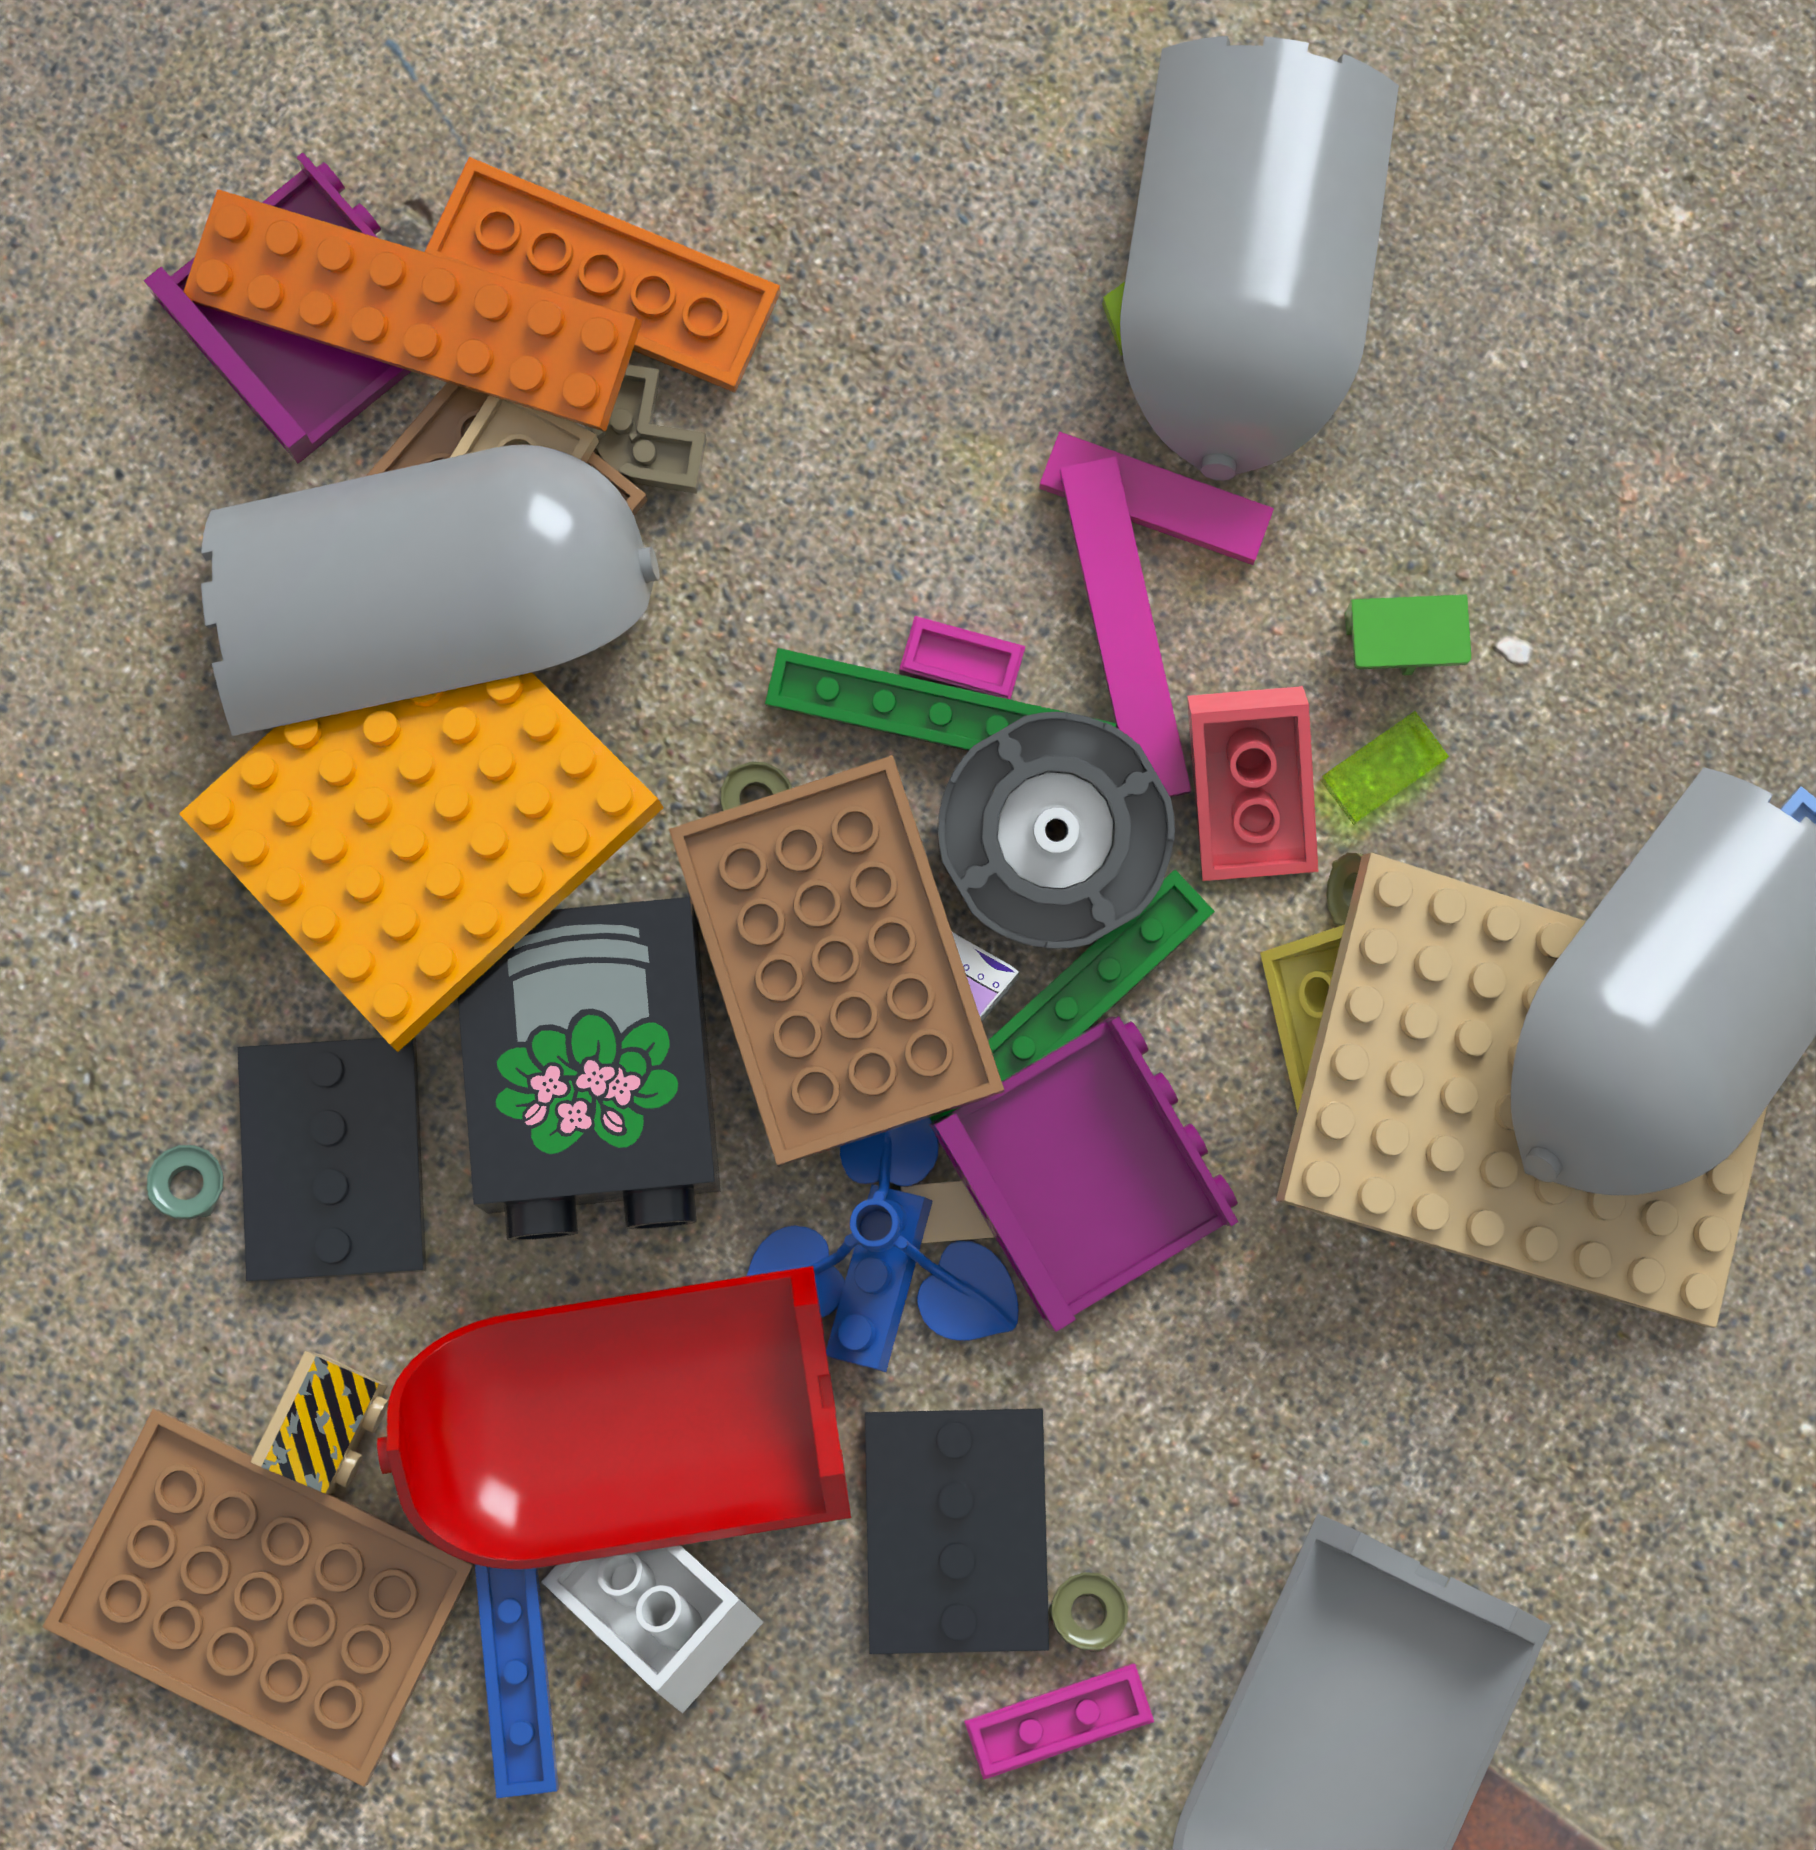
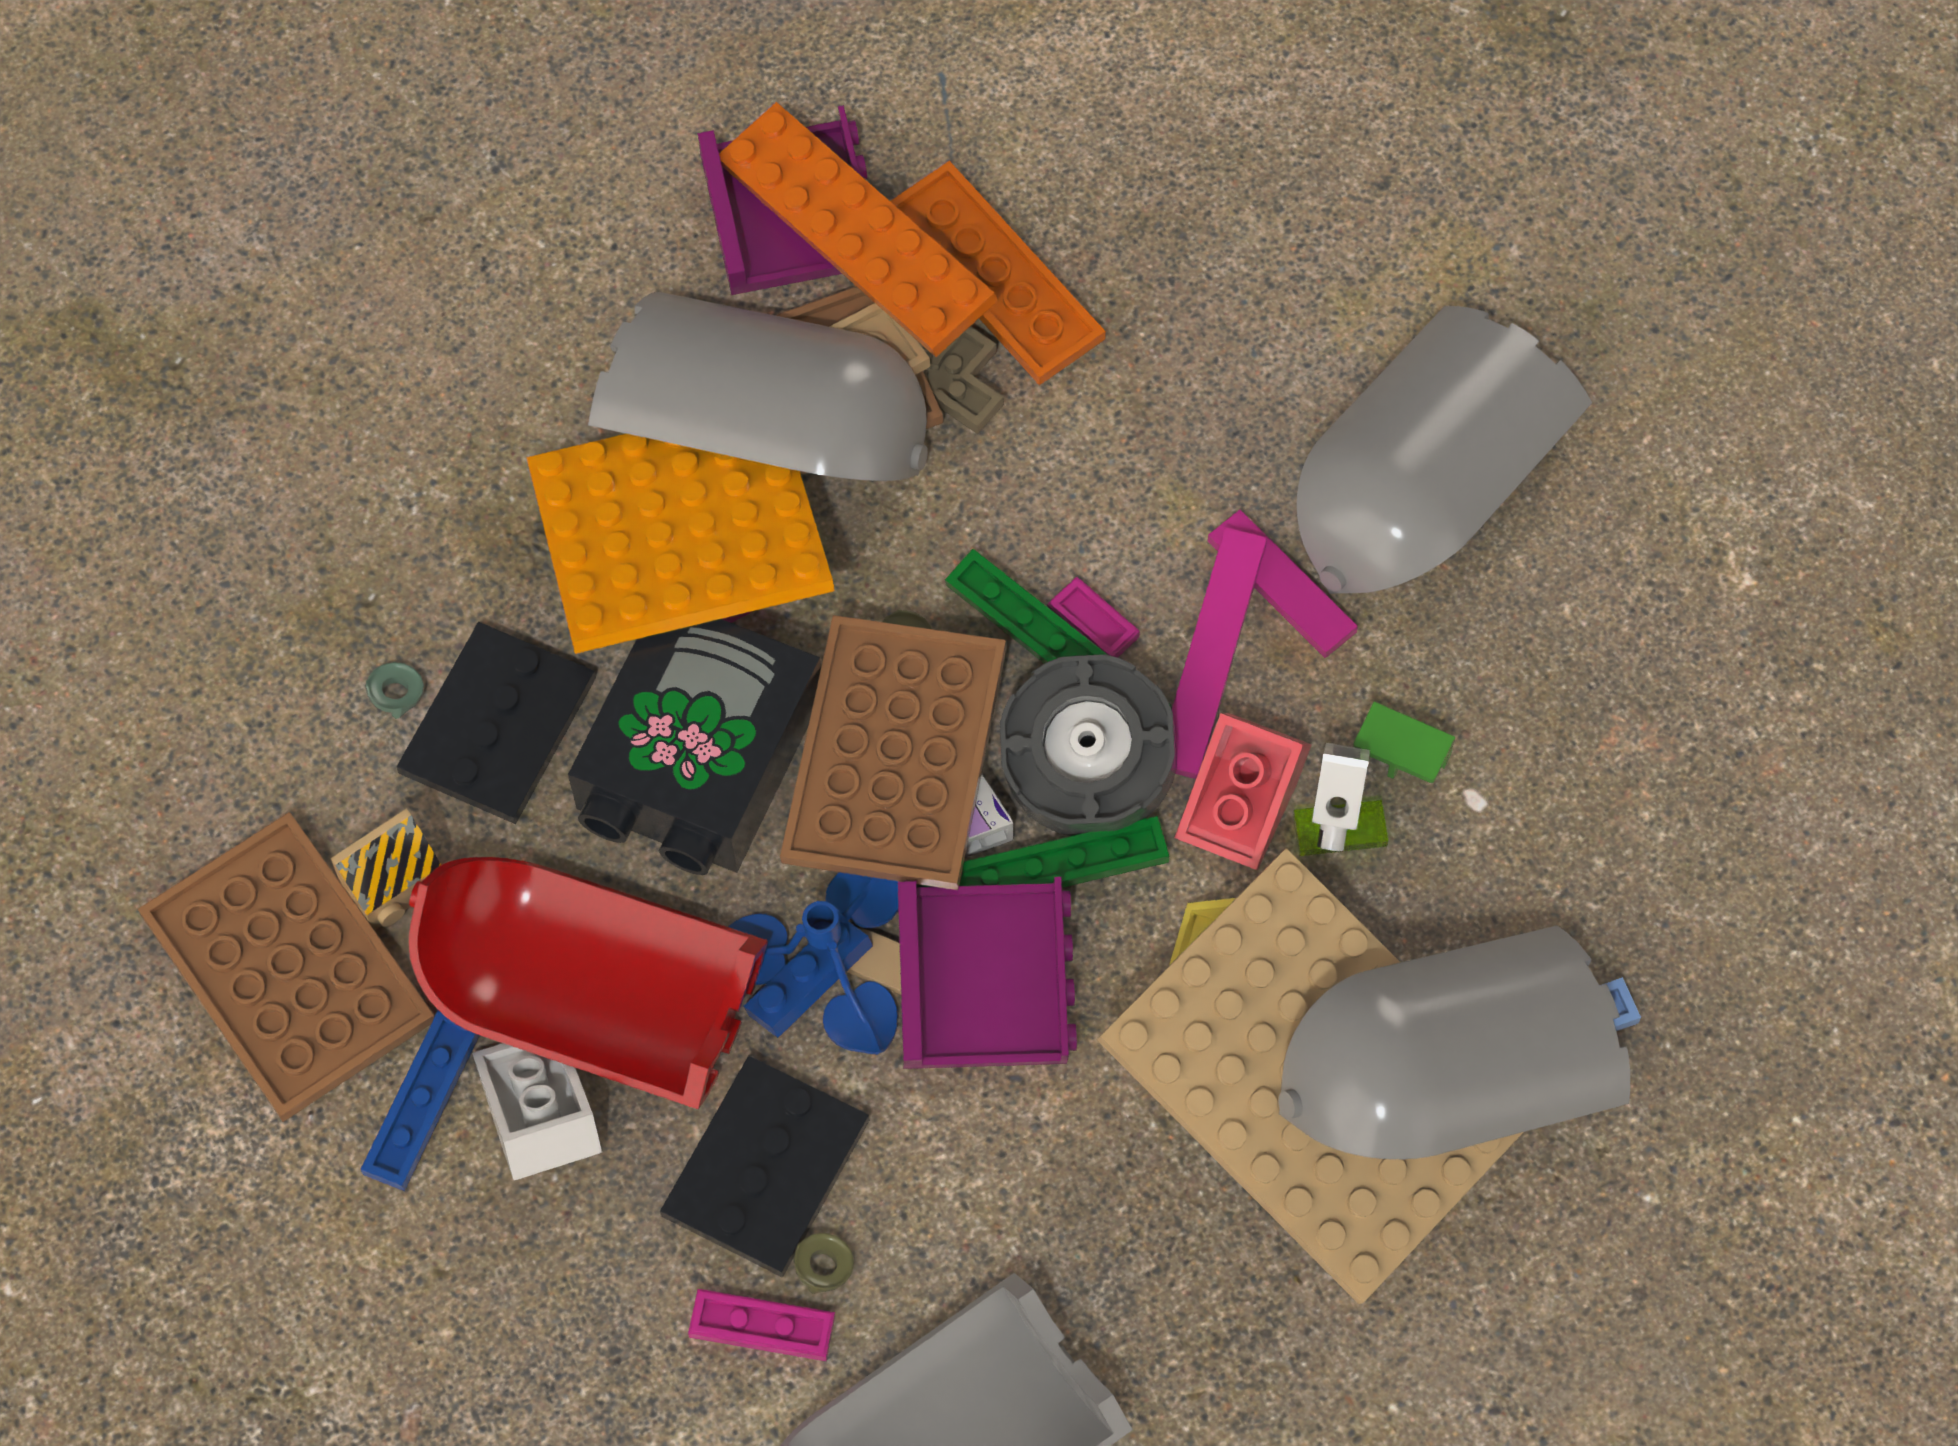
camera: 30 degrees right, 15 degrees down
(1377, 734) = (1340, 776): none -> white torso

